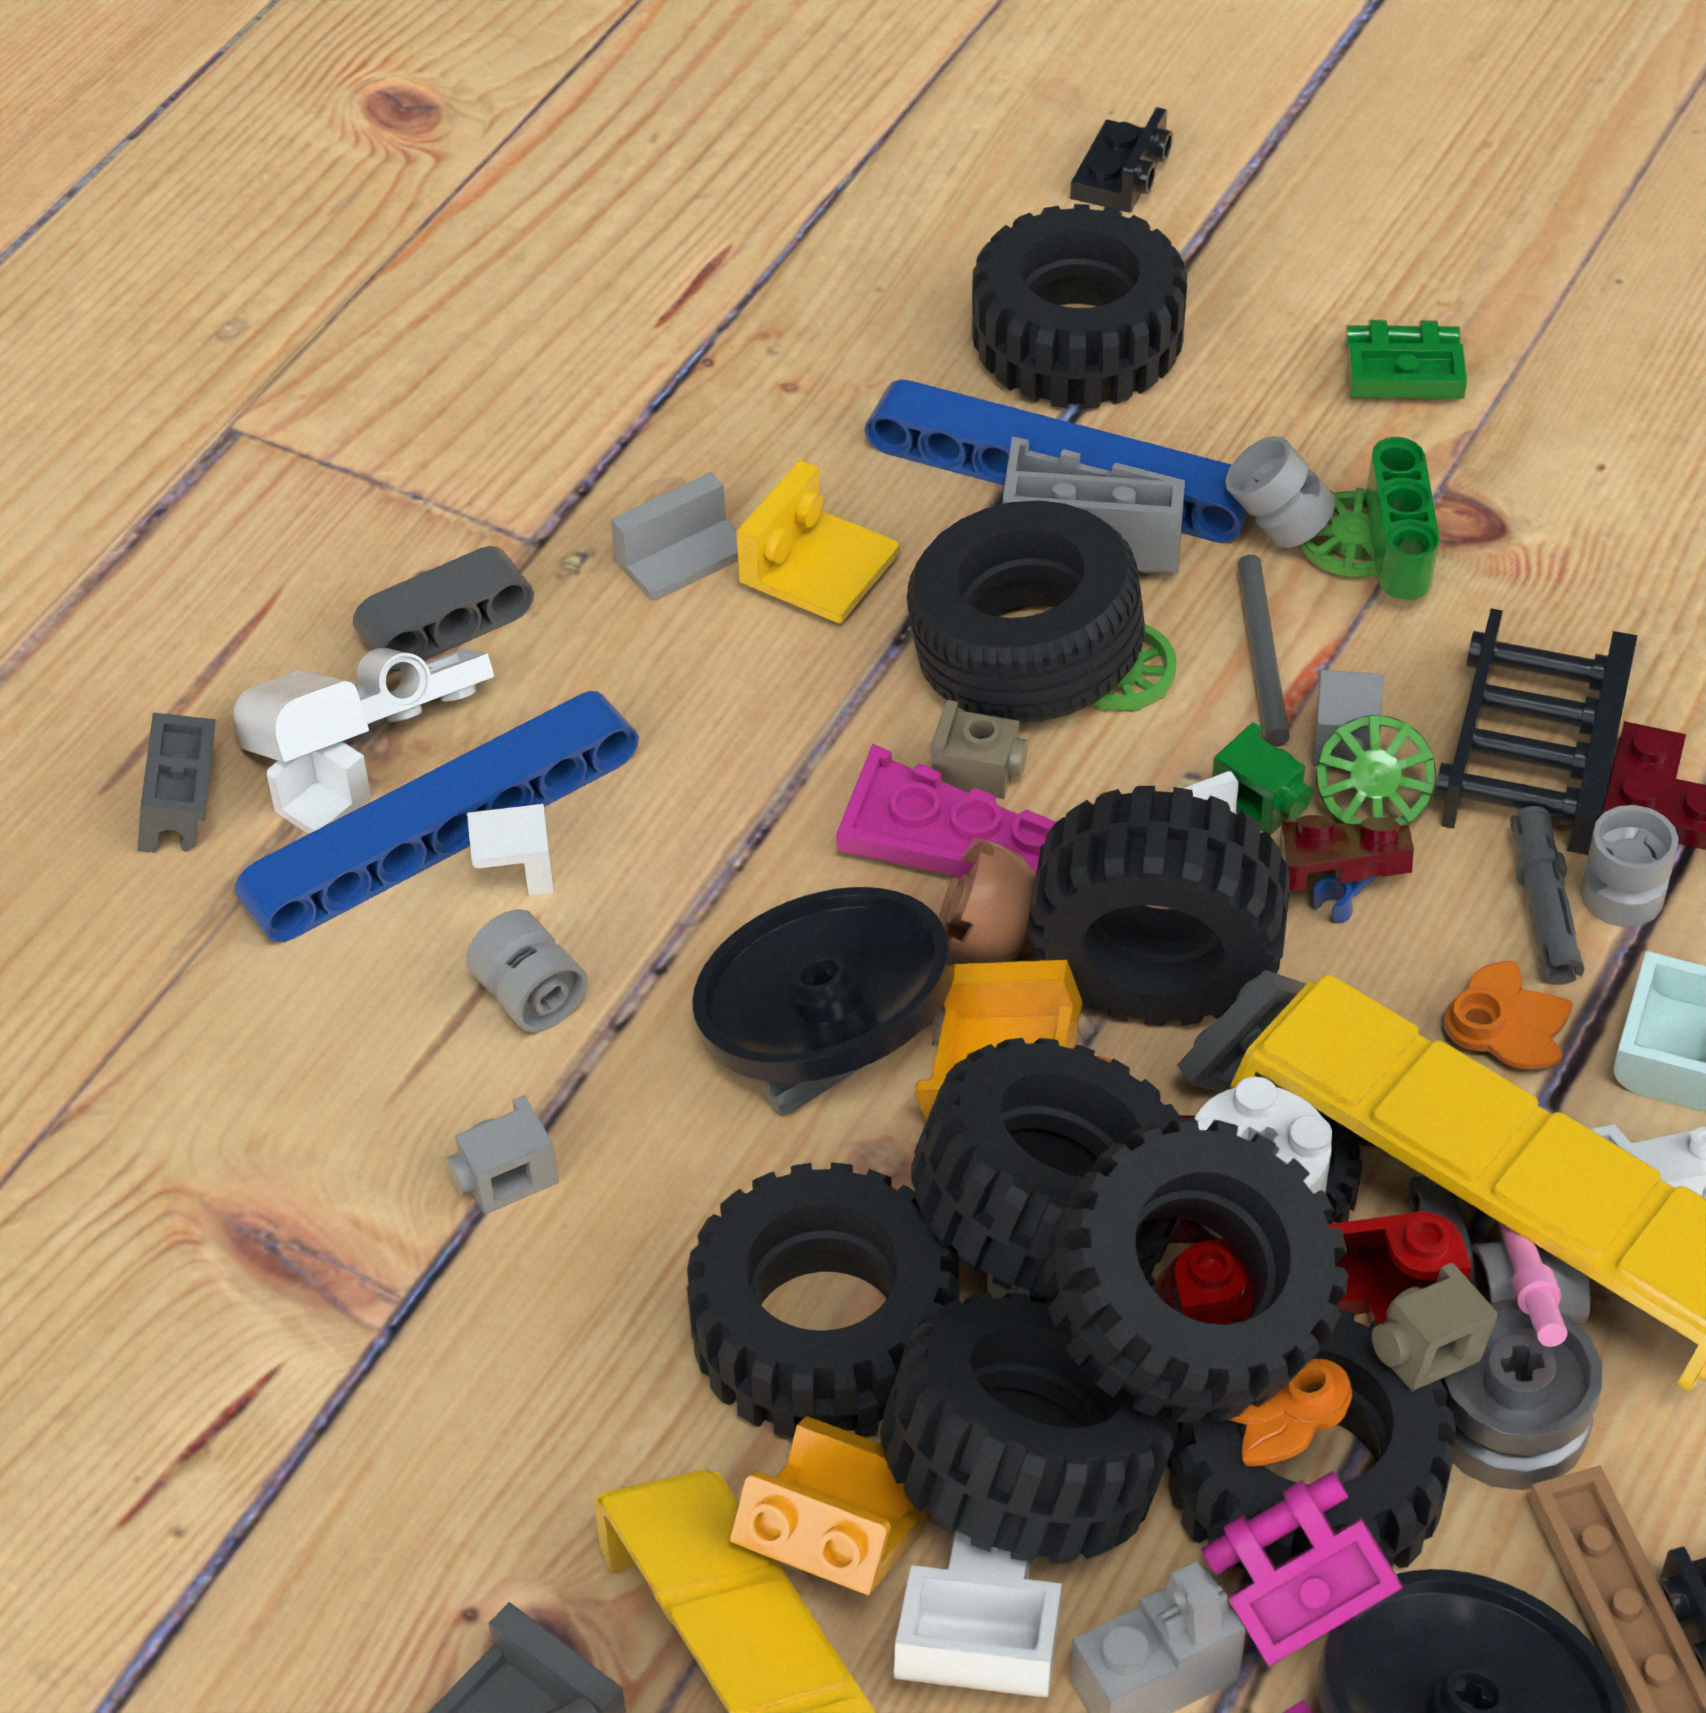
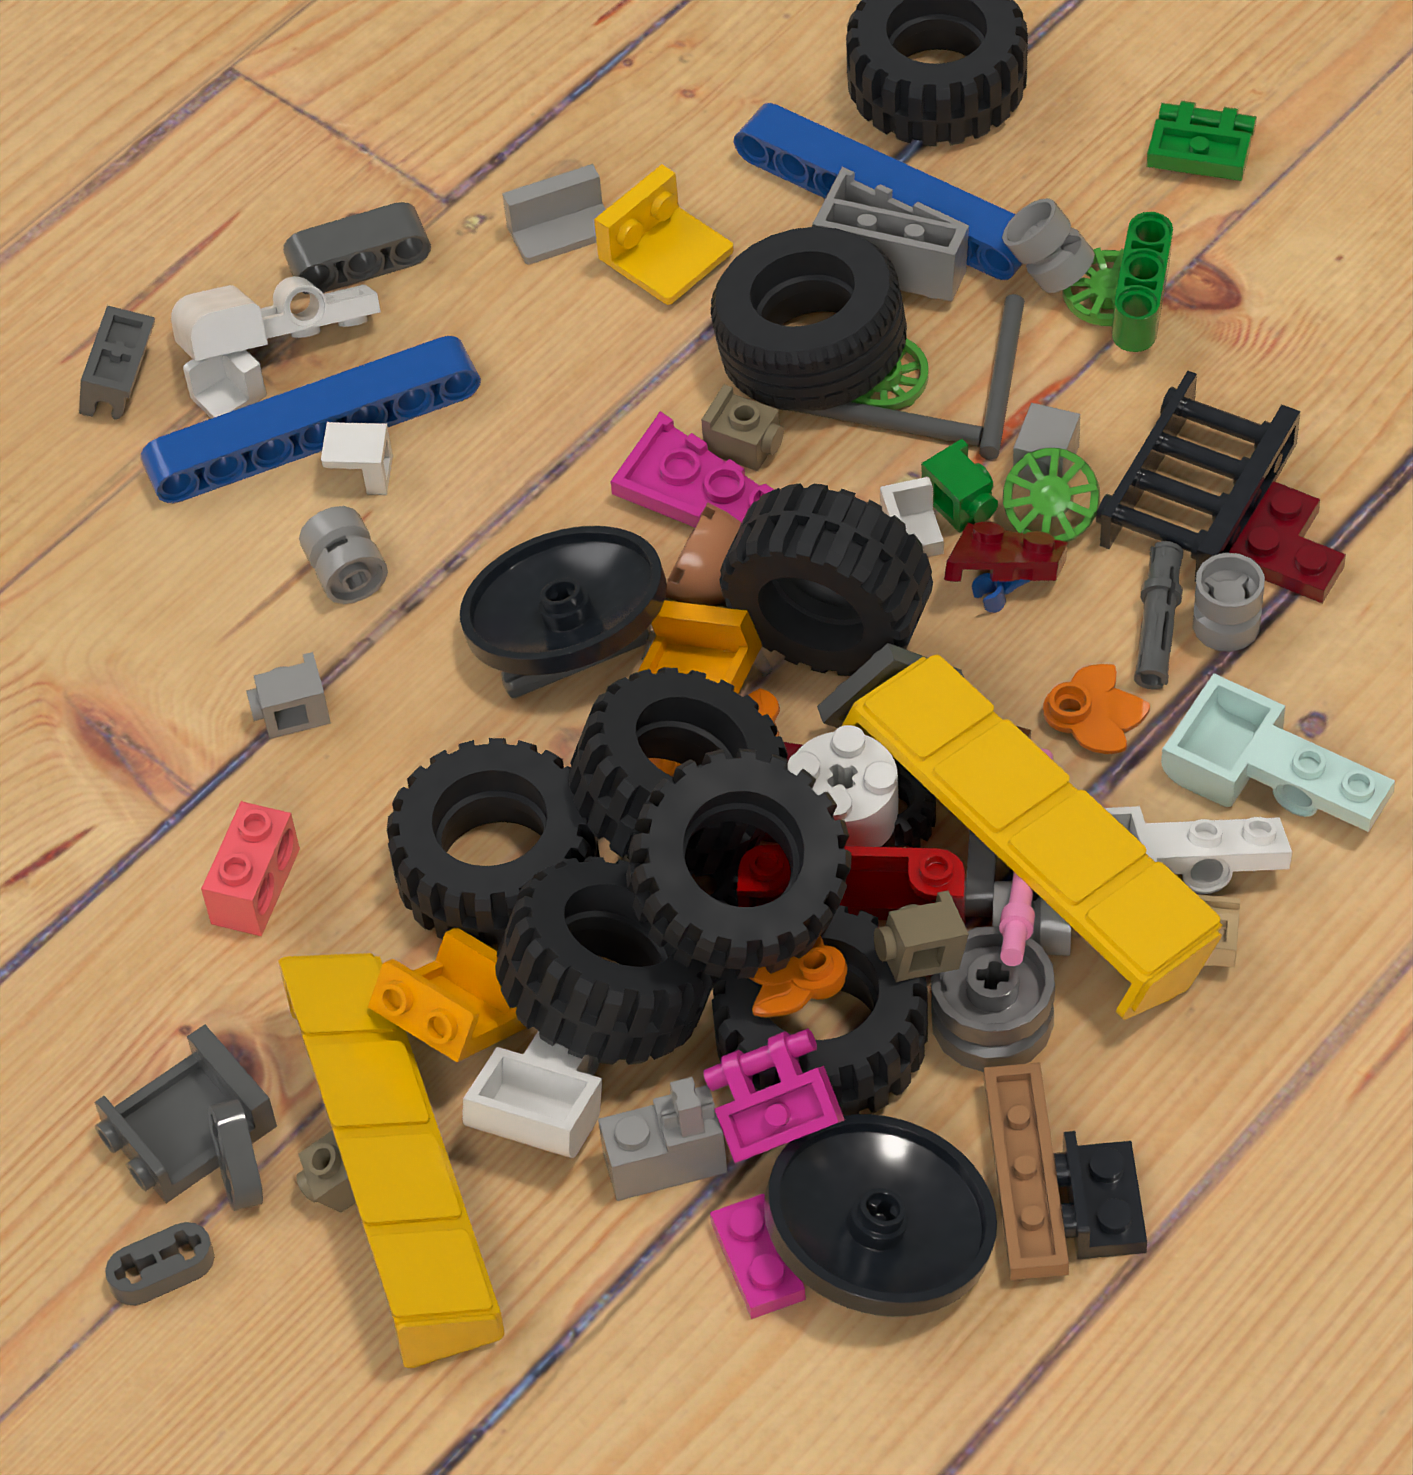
camera: 15 degrees right, 5 degrees up
(510, 1385) = (250, 868): none -> coral brick
(1160, 717) = (904, 422): none -> dark grey bar

